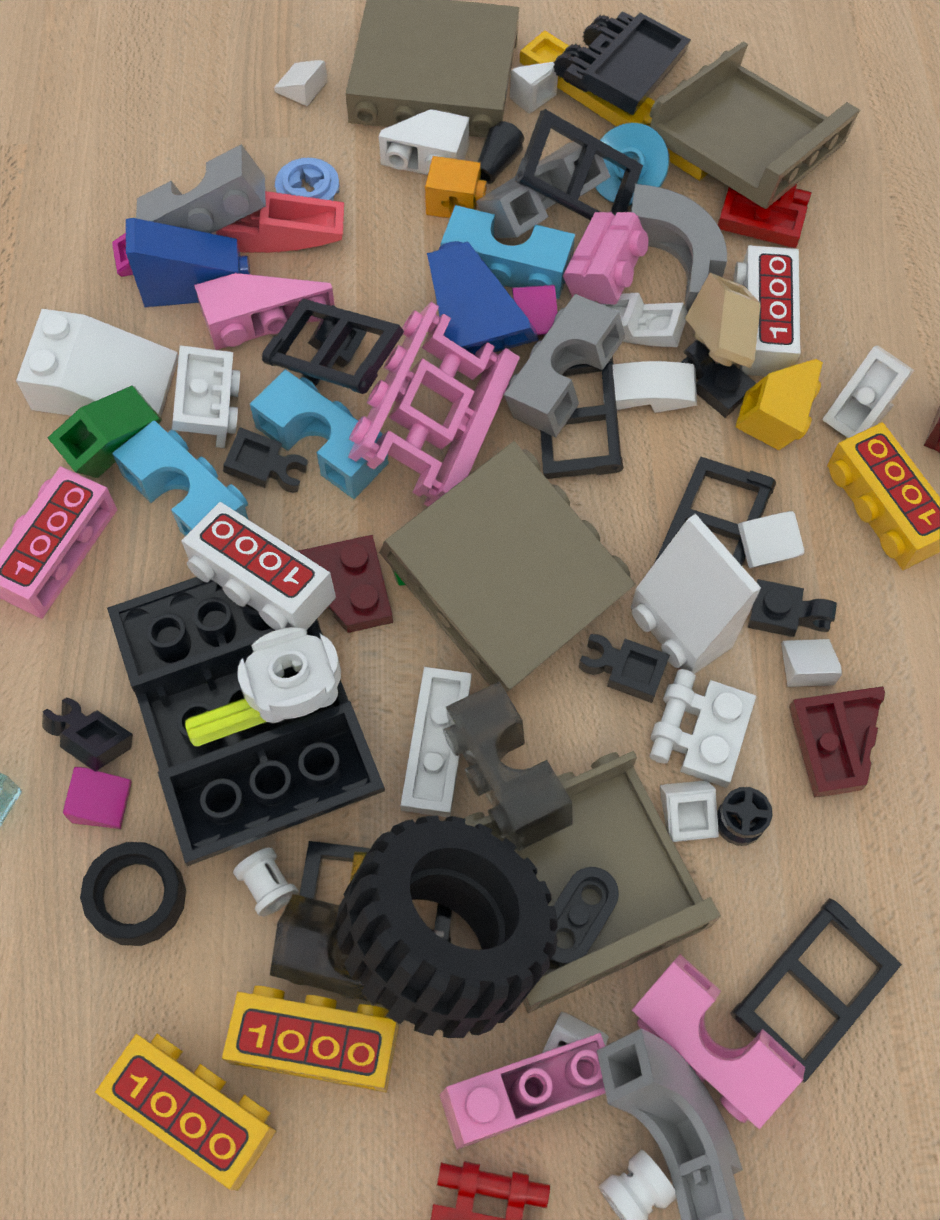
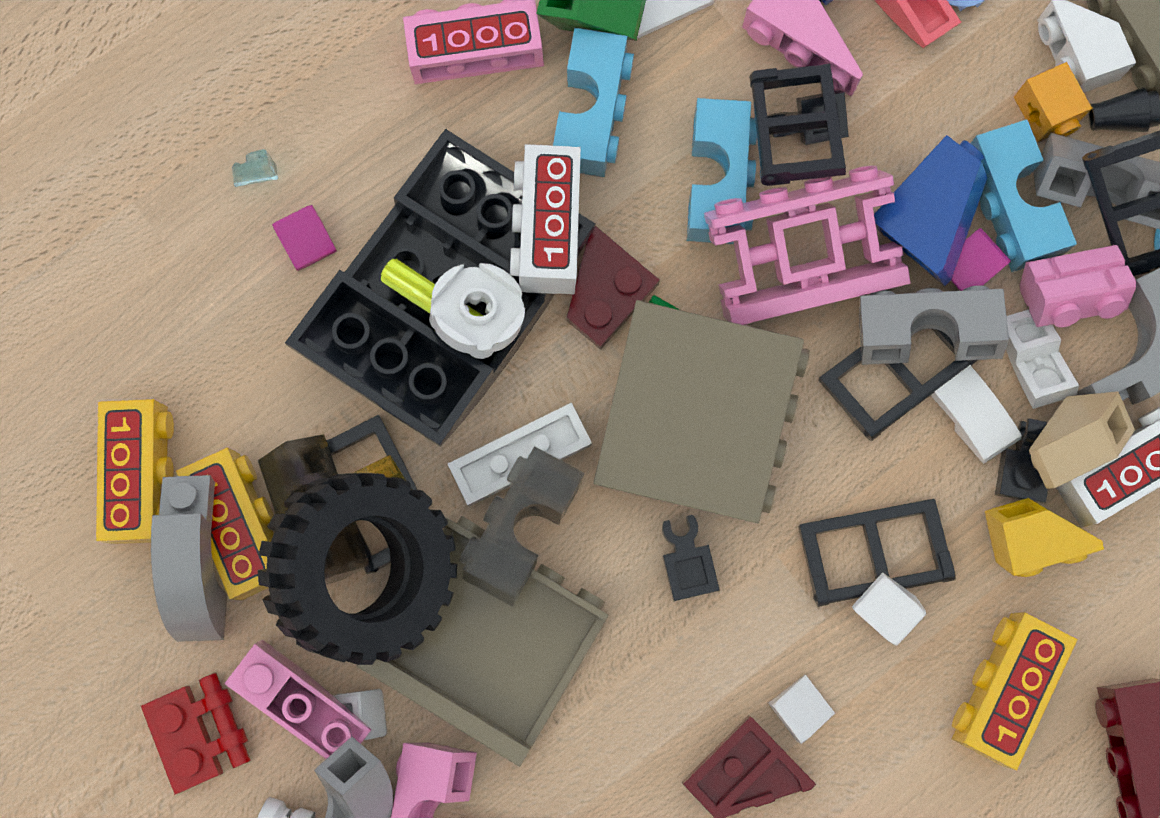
camera: 60 degrees right, 15 degrees up
(89, 738) = (342, 197): black plate -> none
(107, 866) = (225, 300): black tyre -> none
(204, 393) = (684, 53): white bracket -> none
(258, 459) = (659, 140): black plate -> none
(265, 881) = (324, 406): white bush -> none
(318, 1101) = (181, 561): none -> light grey arch
(579, 918) = (453, 657): black plate -> none
(690, 810) = (603, 687): white slope -> none
(694, 598) = (769, 580): white slope -> none
(717, 732) = (685, 669): white plate -> none
(748, 806) = (620, 745): black wheel -> none
(781, 610) = (834, 656): black plate -> none
(868, 393) = (1103, 609): white slope -> none

